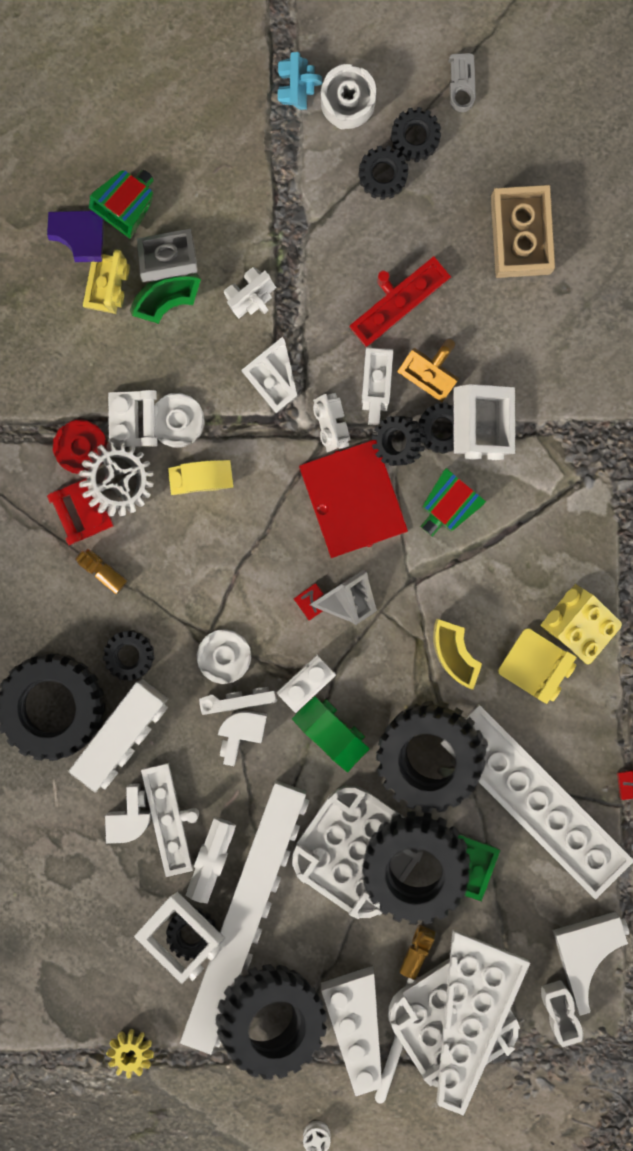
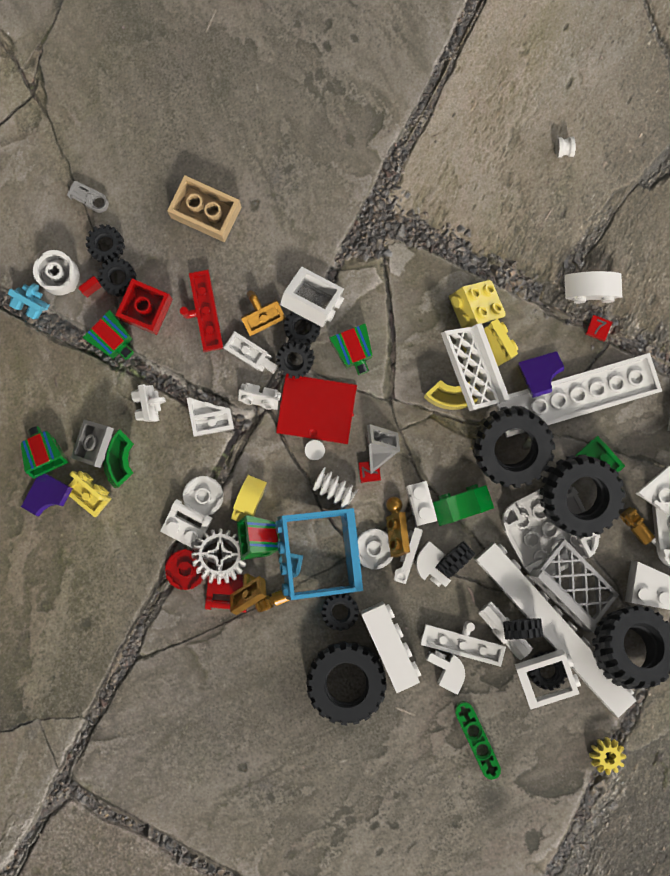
camera: 60 degrees left, 5 degrees down
(69, 895) = (478, 739): none -> green beam
(91, 539) = (252, 591): none -> pearl gold plate
(154, 567) = (296, 563): none -> medium azure tile
(162, 513) = (257, 537): none -> green torso
(205, 631) = (351, 553): none -> dark azure window
(221, 879) = (523, 628): none -> black tyre
(261, 759) = (456, 559): none -> black tyre
(262, 670) = (397, 528): none -> pearl gold plate
(268, 571) = (334, 489): none -> white piece
(283, 910) = (560, 595): none -> light grey fence
(302, 523) = (314, 450): none -> white tile
(306, 205) = (110, 337): none -> torso
(353, 145) = (90, 286): none -> red tile
(363, 225) = (144, 307): none -> red brick
(511, 670) = (483, 364): none -> white fence
(540, 742) = (540, 371): none -> dark purple tile

